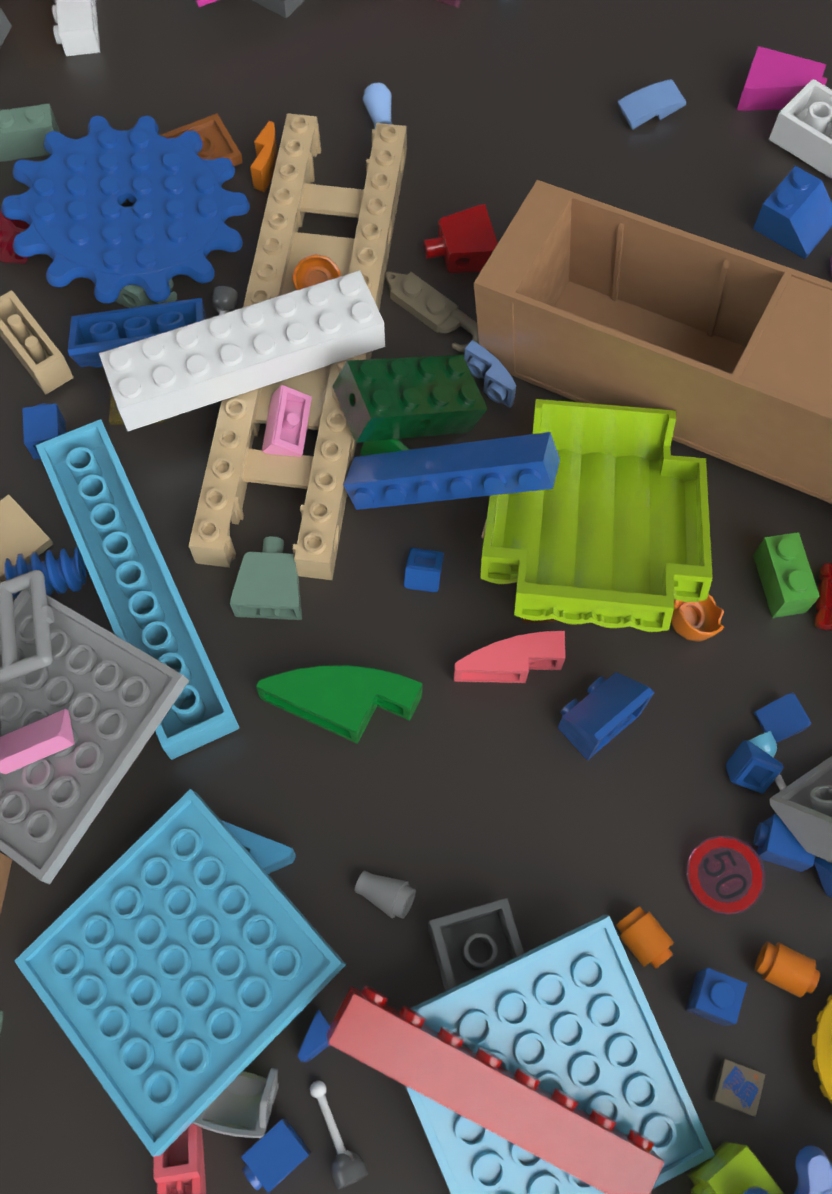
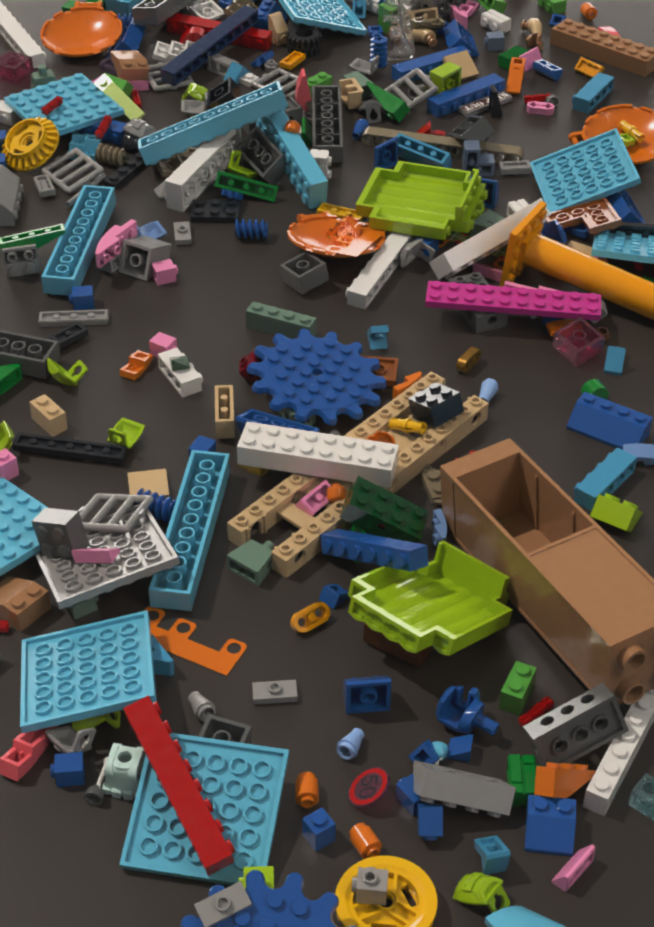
camera: 35 degrees right, 25 degrees down
(158, 92) = (377, 337): none -> dark azure slope
(263, 799) = (180, 645): none -> orange piece
(311, 399) = (336, 492): none -> orange piece
(314, 66) = (468, 359): none -> pearl gold beam
(315, 1039) = (122, 736): blue slope -> none
(328, 225) = (407, 425): none -> yellow pin
(341, 696) = (248, 621): green slope -> none
(346, 169) = (436, 405): none -> black brick
(368, 1129) = (122, 771): none -> light aqua piece
(425, 636) = (308, 617): none -> light orange plate
(467, 792) = (274, 692): none -> light grey plate
(513, 658) = (343, 649): coral slope -> none
(521, 36) = (596, 388): none -> green piece
(574, 75) = (608, 421): none -> blue slope
(636, 163) = (605, 477): none -> dark azure brick
(641, 814) = (349, 745): none -> light blue cone
(697, 619) = (453, 675): orange hair -> none
(701, 214) = (618, 514): none -> lime slope
(738, 1087) = (302, 868): dark tan tile -> none
(756, 663) = (464, 715): none -> blue piece

